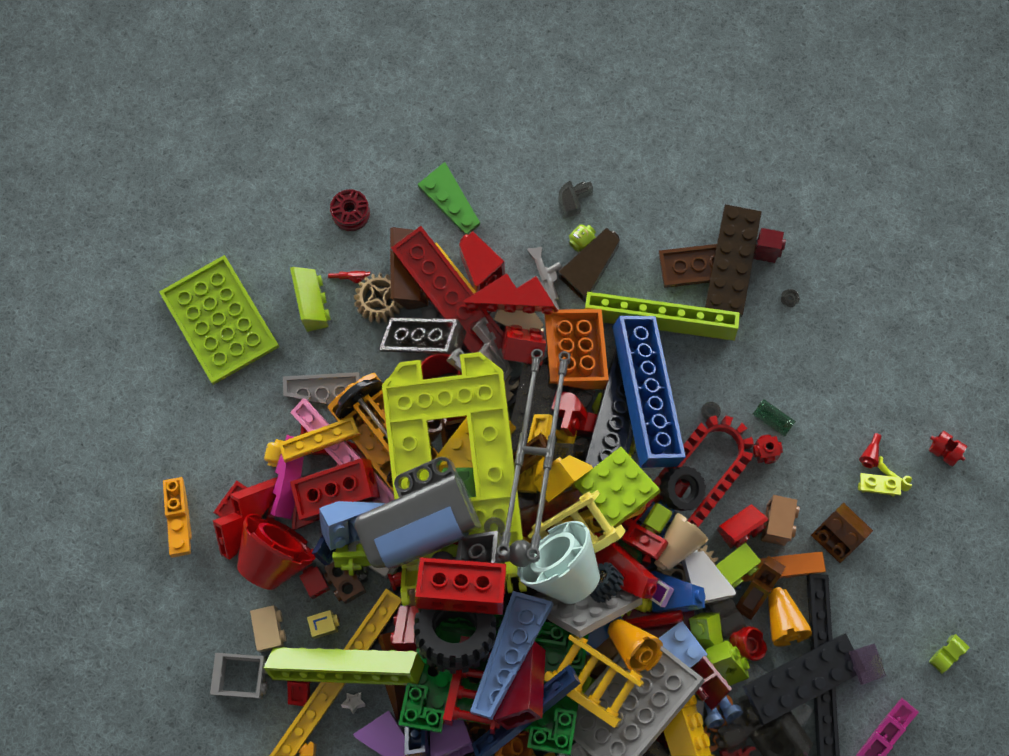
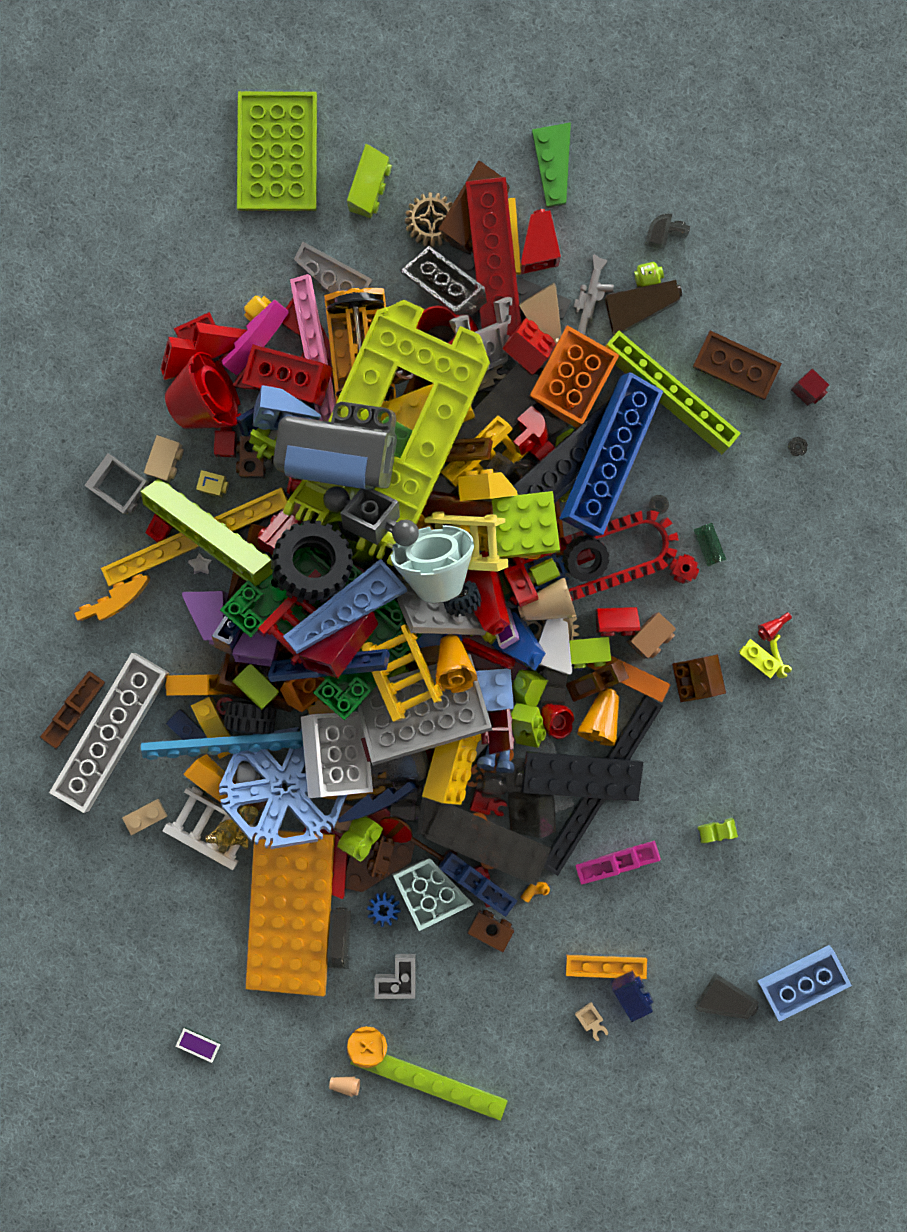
camera: 25 degrees right, 15 degrees up
(177, 517) = (141, 313): light orange slope -> none
(318, 439) = (299, 321): yellow tile -> none
(350, 200) = (455, 105): dark red wheel -> none
(354, 276) = (421, 184): red hand -> none
(460, 586) = (336, 517): red brick -> none
(501, 526) = (405, 494): clear smoke plate -> none
(505, 296) = (541, 291): red slope -> none
(522, 449) = (464, 443): dark grey bar -> none
(733, 259) = (770, 380): dark brown plate -> none
(867, 664) = (644, 797): clear purple piece -> none
(947, 448) = (840, 664): red wheel -> none

